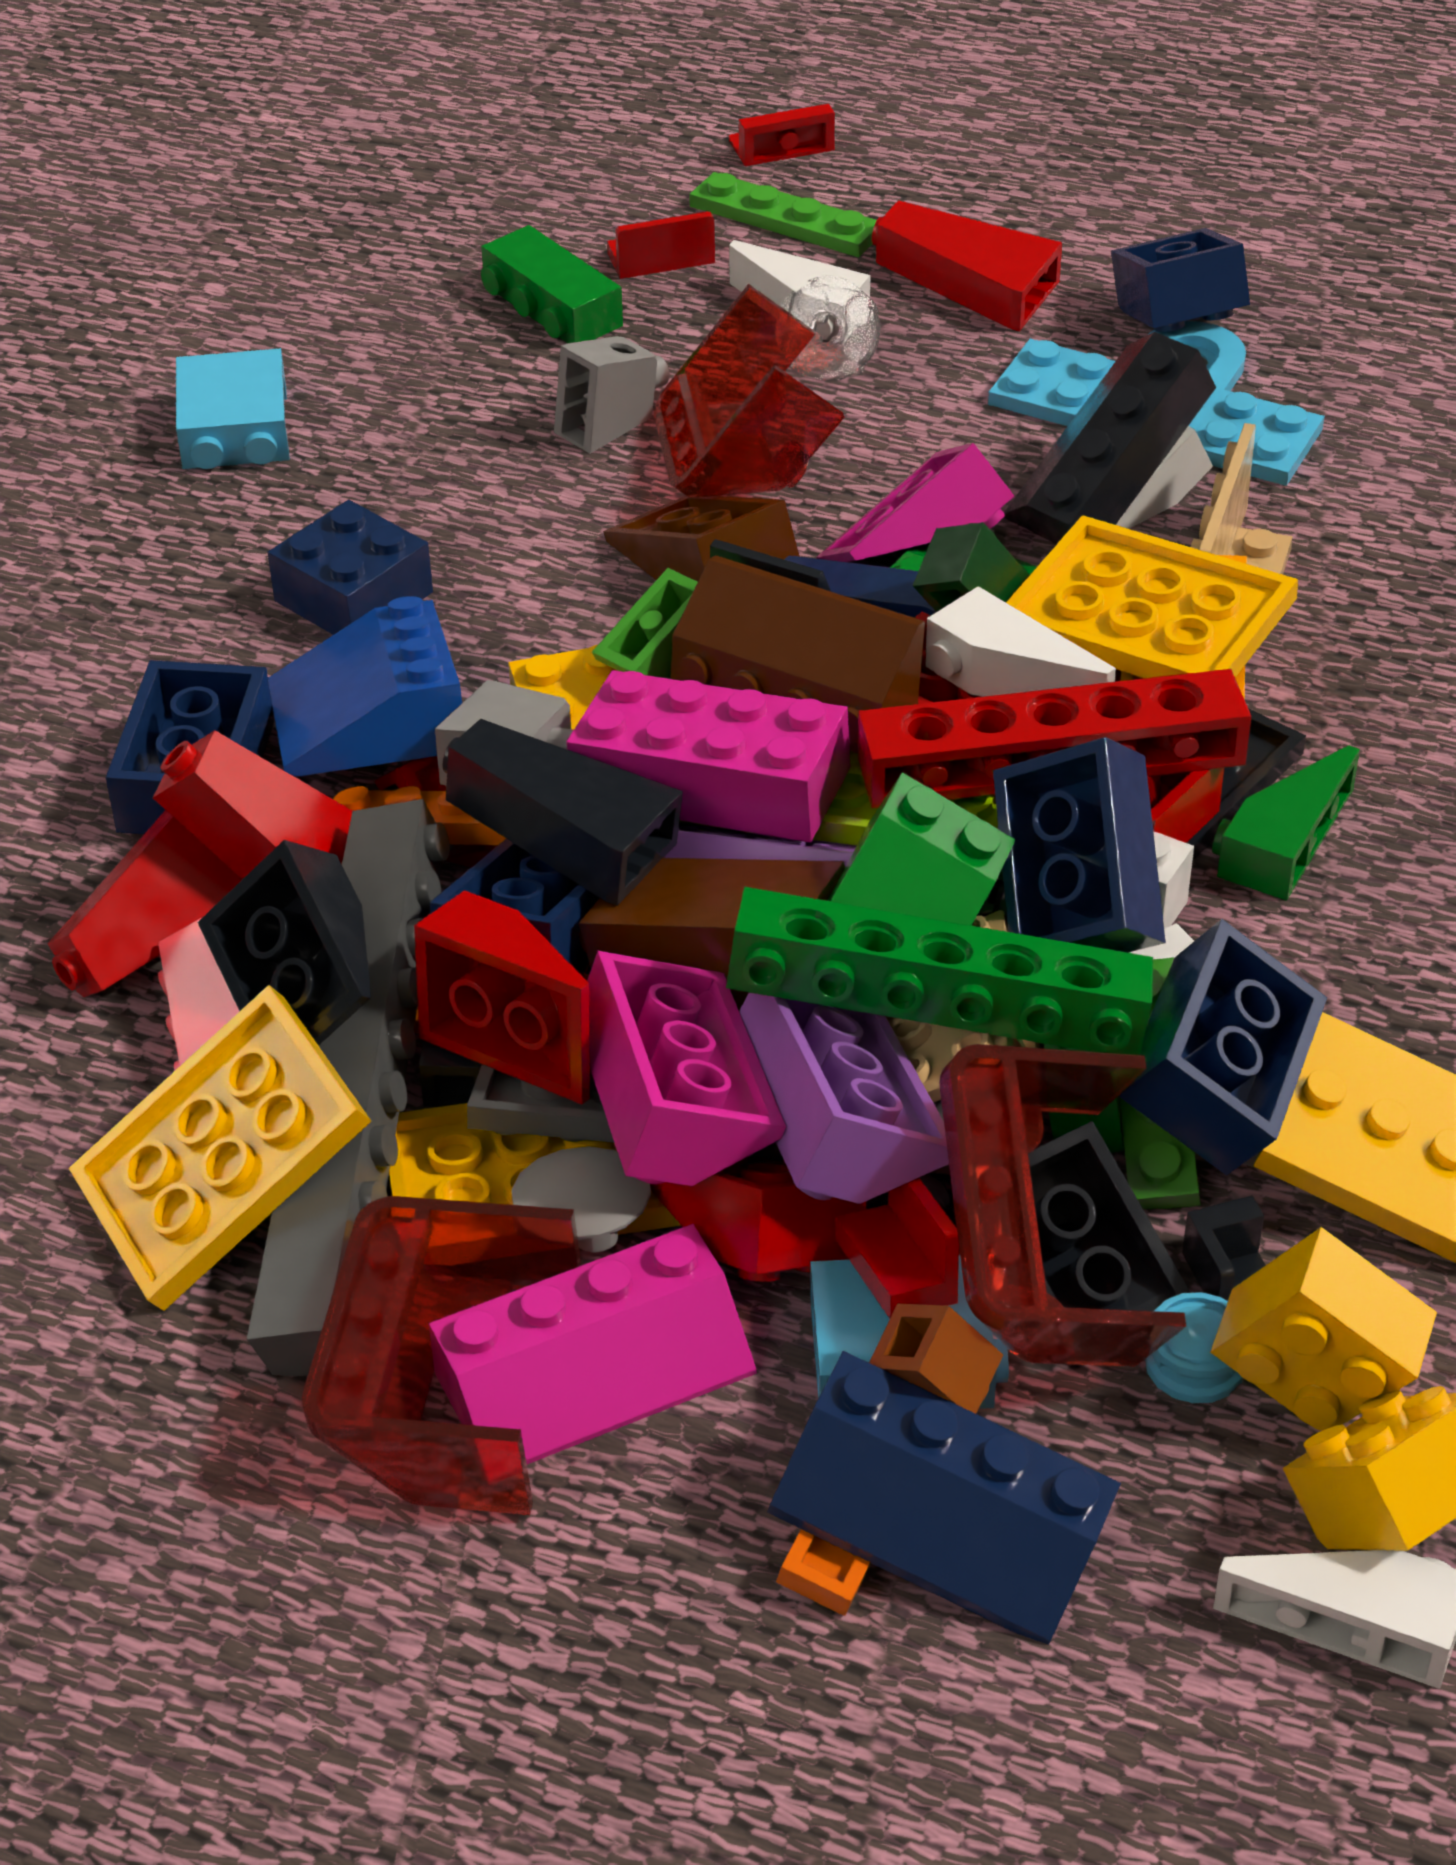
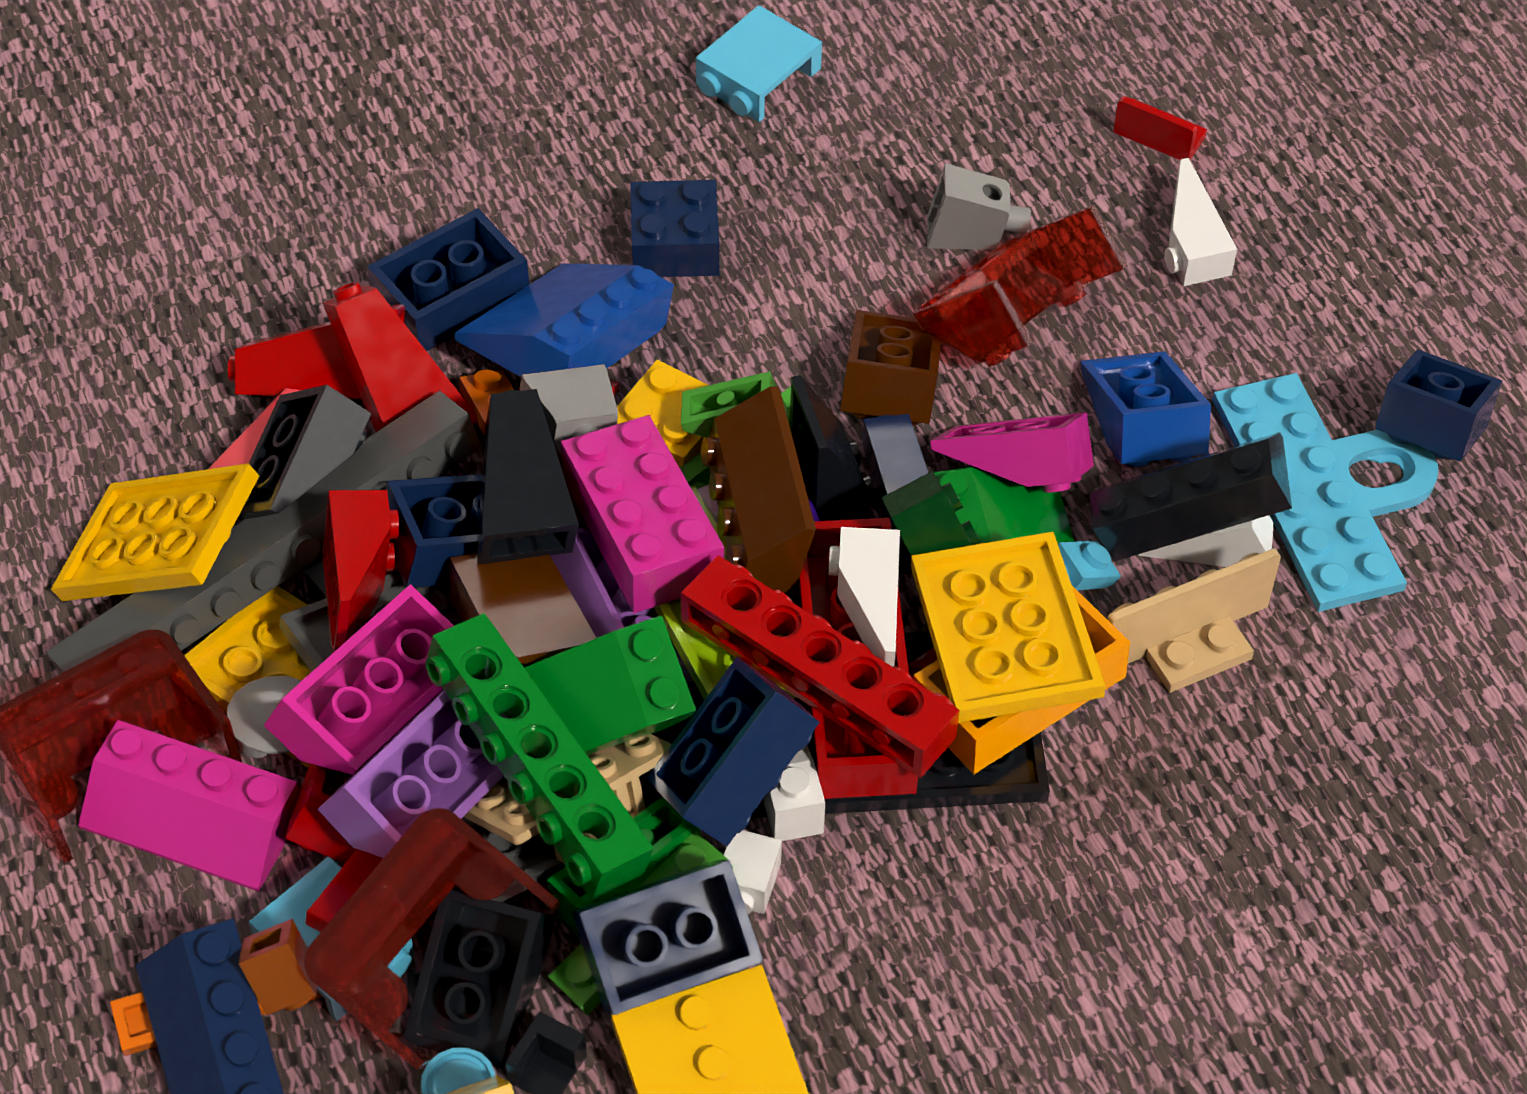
camera: 45 degrees right, 10 degrees up
(551, 286) = (1046, 109): green brick -> none
(784, 213) = (1278, 160): bright green plate -> none
(785, 135) = (1353, 97): red panel -> none
(858, 323) = (1181, 272): clear plate -> none
(969, 261) = (1336, 288): red slope -> none
(996, 416) = (1147, 408): none -> blue slope
(1284, 825) = (953, 837): green slope -> none

